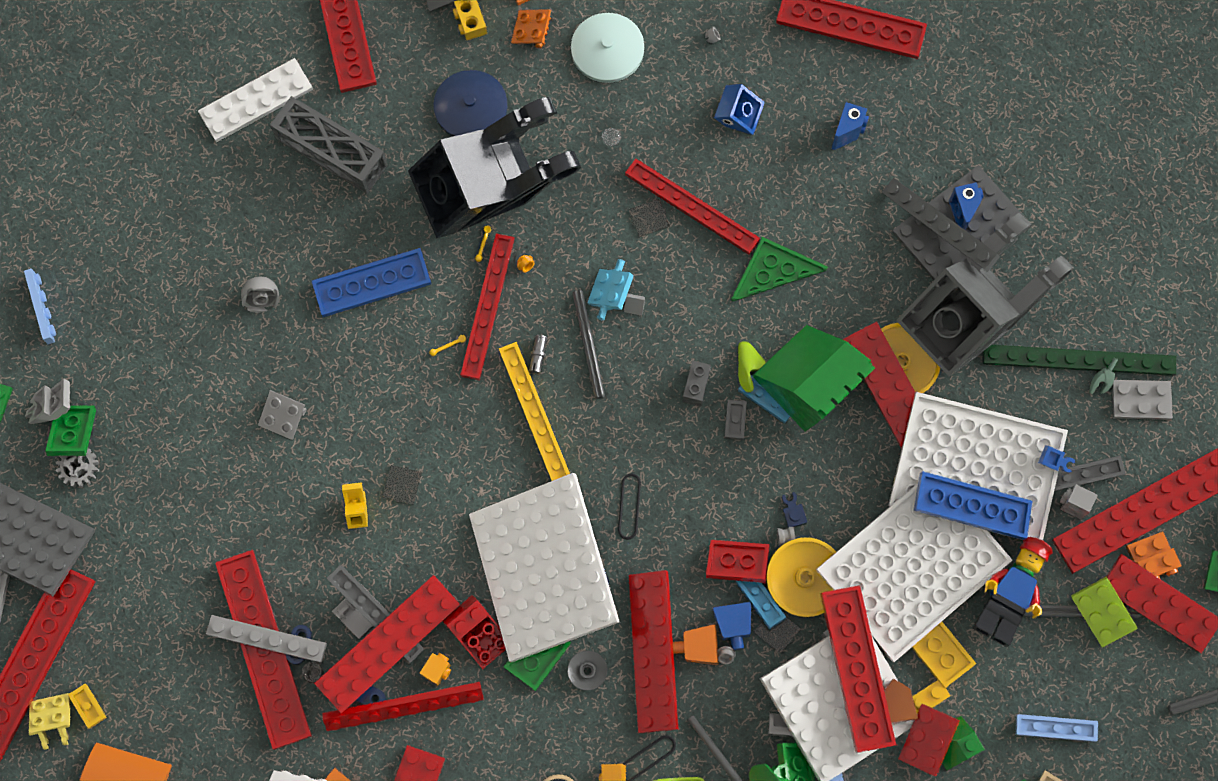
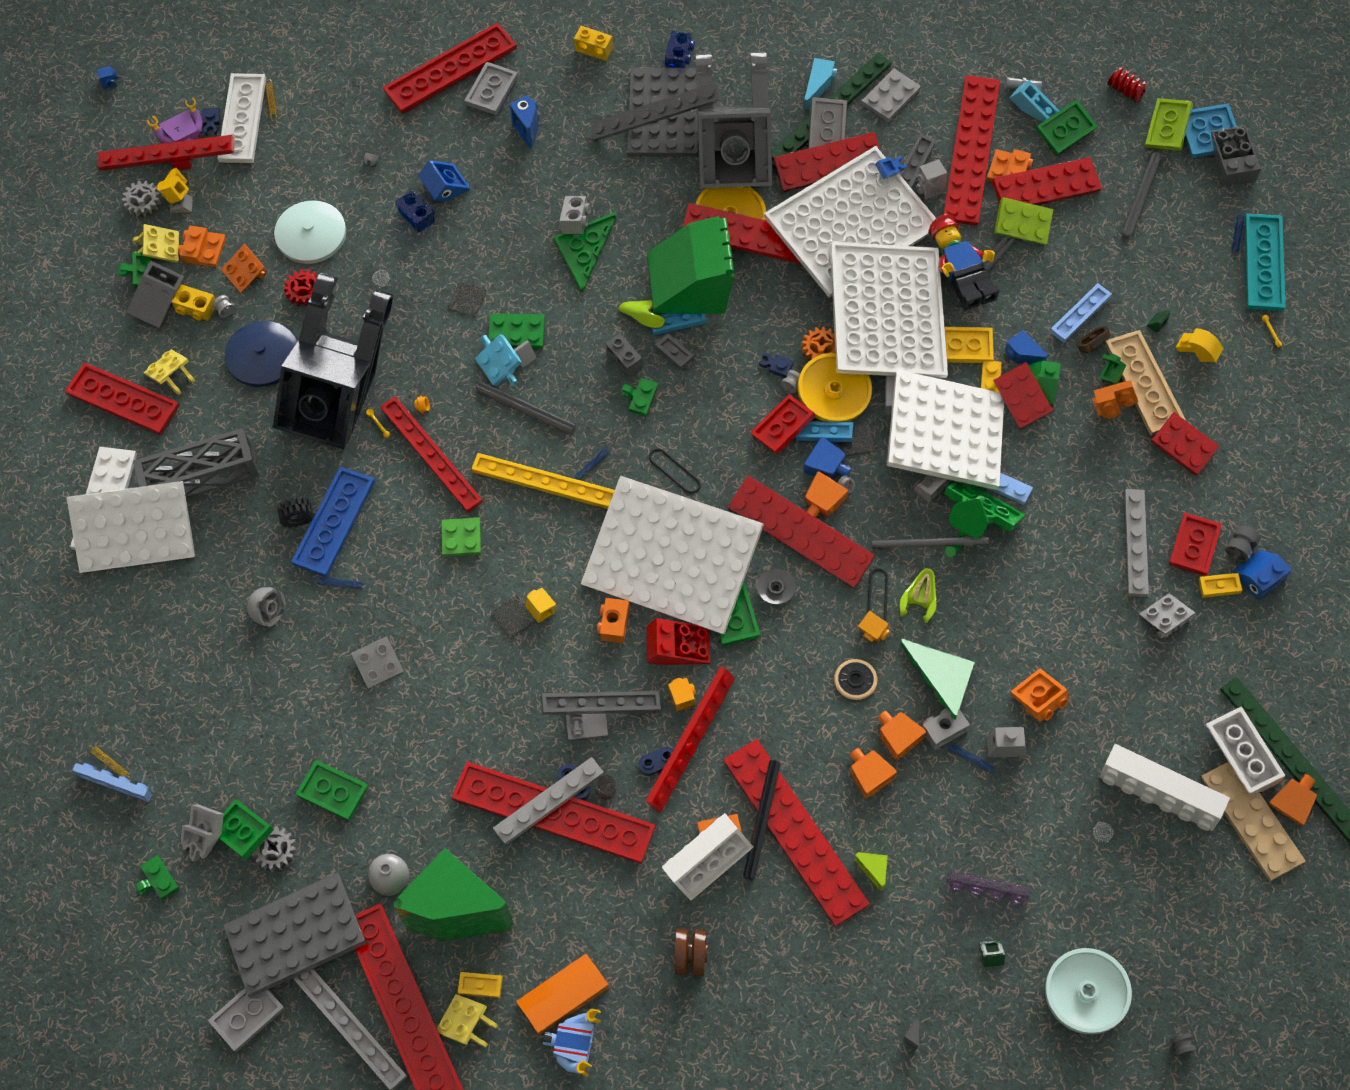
camera: 50 degrees left, 10 degrees down
(54, 291) = (105, 755): none -> yellow piece
(121, 566) = (388, 874): none -> light grey cylinder
(123, 636) = (451, 902): none -> green windscreen
(154, 469) = (332, 790): none -> green plate
(242, 141) = (131, 526): none -> white plate
(329, 331) = (340, 582): none -> blue piece
(352, 249) = (295, 512): none -> black tyre
(355, 505) = (500, 659): yellow brick -> none
(386, 644) = (632, 712): red plate -> none
(398, 46) = (166, 366): none -> light yellow plate
(424, 497) = (540, 604): none -> yellow brick
(436, 389) = (461, 537): none -> bright green plate
(450, 575) = (613, 609): none -> orange brick
(461, 339) = (438, 491): yellow hinge -> none
(485, 41) = (223, 306): none -> light grey wheel
(538, 354) = (501, 446): flat silver pin -> none
(560, 85) = (303, 287): none -> red gear
(564, 435) = (600, 453): none -> blue piece
(653, 280) = (518, 328): none -> green plate
(673, 427) = (641, 397): none -> green plate
(689, 111) = (412, 207): none -> clear blue brick
(692, 206) = (486, 263): red plate -> none
(791, 235) = (574, 214): none -> light grey brick
(835, 526) = (813, 340): none -> orange gear
(858, 669) = (935, 395): red plate -> none
(860, 71) = (491, 88): none -> light grey plate
(900, 702) = (980, 394): dark orange slope -> none
(965, 202) = (653, 86): blue slope -> none
(973, 505) = (878, 238): blue plate -> none
(974, 116) = (593, 43): none -> yellow brick
(977, 707) = (1024, 349): none -> blue slope
(1022, 397) = (812, 164): none -> red plate
(1026, 186) = (679, 50): none -> clear blue brick
(1038, 758) = (1093, 339): none -> dark brown plate
(1058, 372) = (827, 121): none -> light grey plate
(1101, 329) = (819, 80): none -> medium azure slope
(1105, 376) = (856, 102): sand green hand -> none

